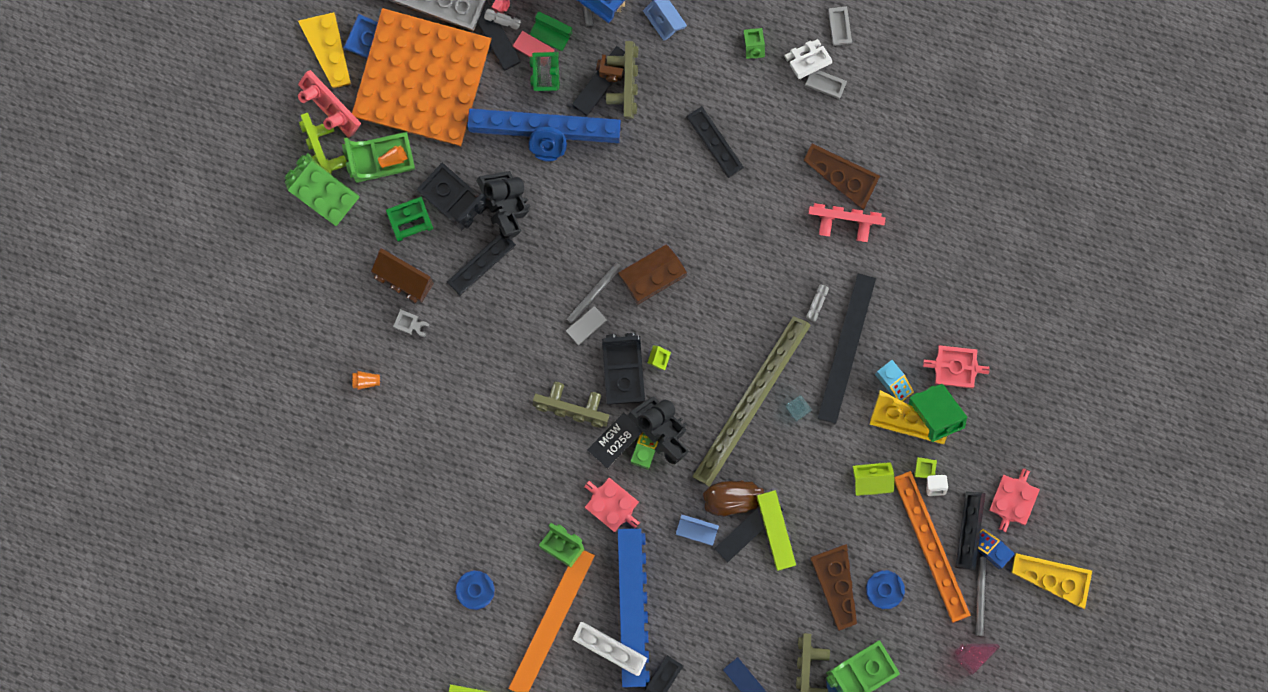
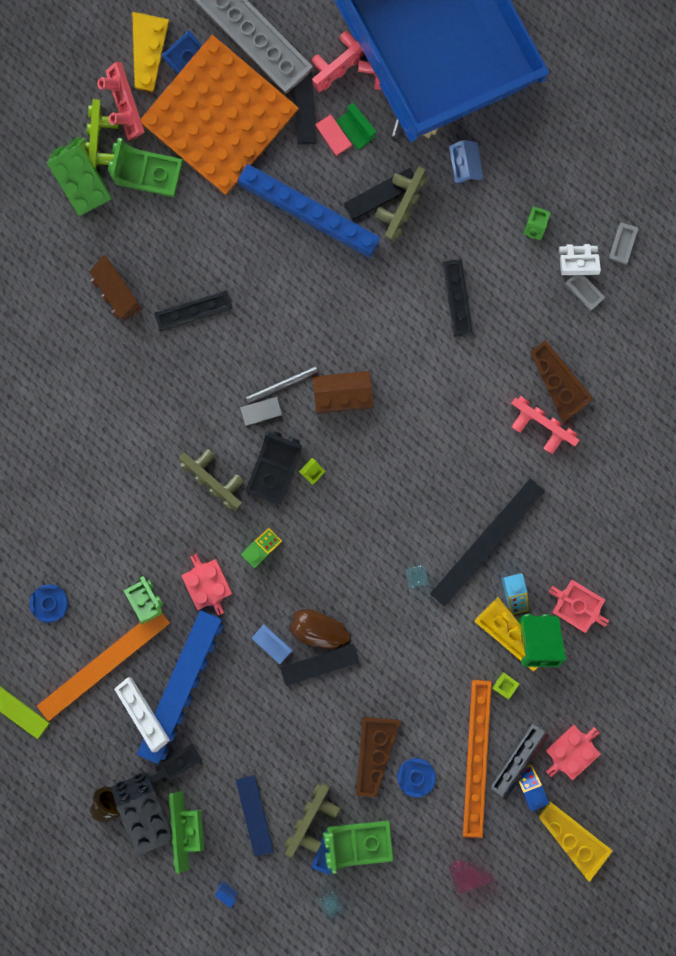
camera: 25 degrees right, 5 degrees up
(365, 380) = (39, 368): orange cone -> none
(392, 157) = (157, 176): orange cone -> none
(407, 213) = (147, 233): green plate -> none
(408, 322) = (102, 334): light grey plate -> none
(452, 197) = (195, 237): black bracket -> none
(502, 19) = (317, 95): light grey axle -> none
(505, 198) = (240, 260): black plate -> none
(545, 71) = (333, 161): green window -> none
(547, 143) = (303, 228): blue tile -> none
(611, 74) = (391, 190): reddish brown bracket -> none
(615, 440) = (237, 528): black sticker -> none
(659, 424) = (283, 534): black plate -> none
(751, 401) = (377, 550): olive plate -> none
(776, 530) = (343, 677): lime tile -> none
(817, 302) = (480, 488): light grey axle -> none
(873, 479) = (454, 672): lime panel -> none
(937, 485) = (508, 706): white slope -> none
(980, 596) = (500, 824): flat silver bar -> none

